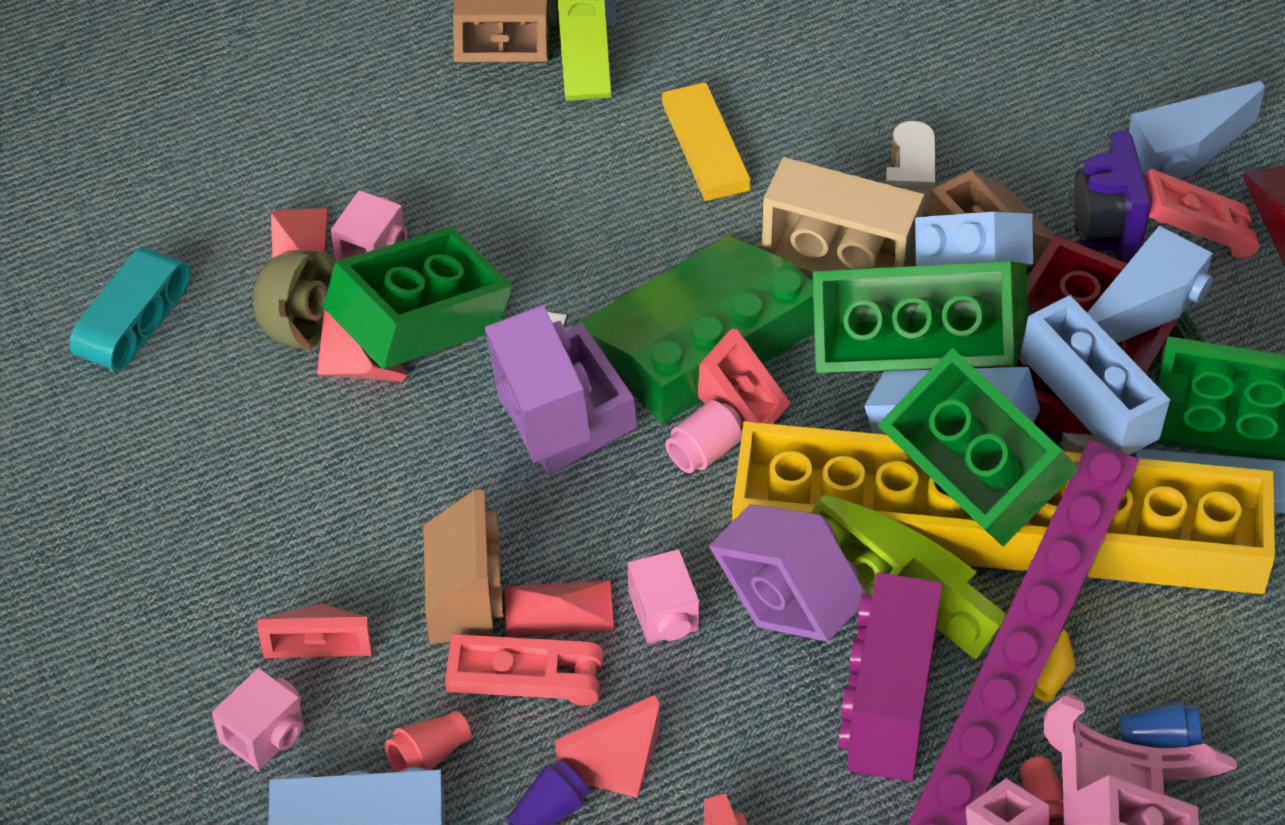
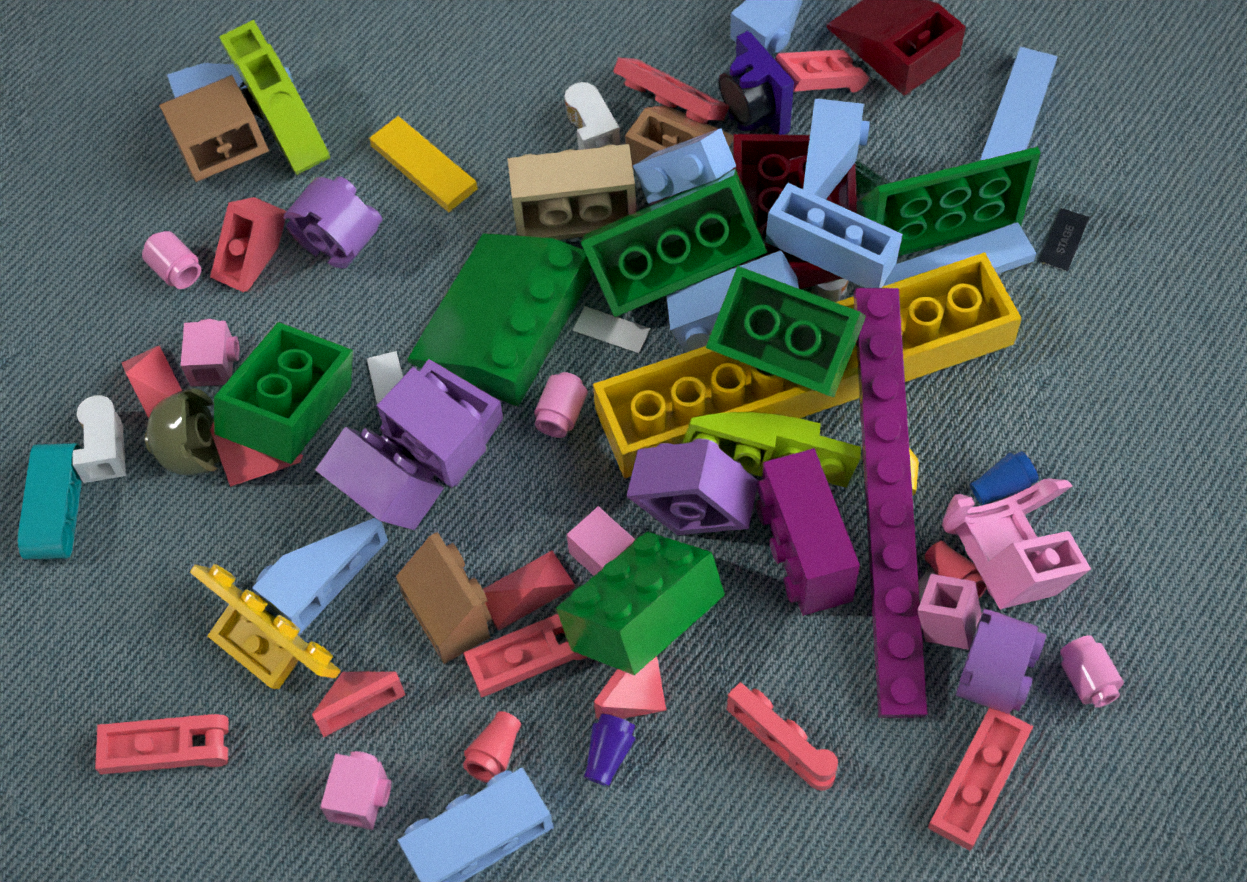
camera: 25 degrees left, 10 degrees up
(98, 586) = (161, 744): none -> coral plate
(213, 275) = (103, 441): none -> white leg
(251, 524) = (257, 638): none -> yellow bracket
(350, 491) = (314, 575): none -> light blue slope
(386, 129) = (171, 260): none -> bright pink brick
(465, 420) = (380, 477): none -> medium lavender brick
(473, 142) = (247, 242): none -> coral slope
(570, 153) = (332, 220): none -> medium lavender brick
(663, 659) = (640, 602): none -> green brick
(739, 379) = (567, 350): coral slope -> none
(811, 389) = (611, 329): none -> white sticker
(1019, 170) = (670, 90): none -> coral plate

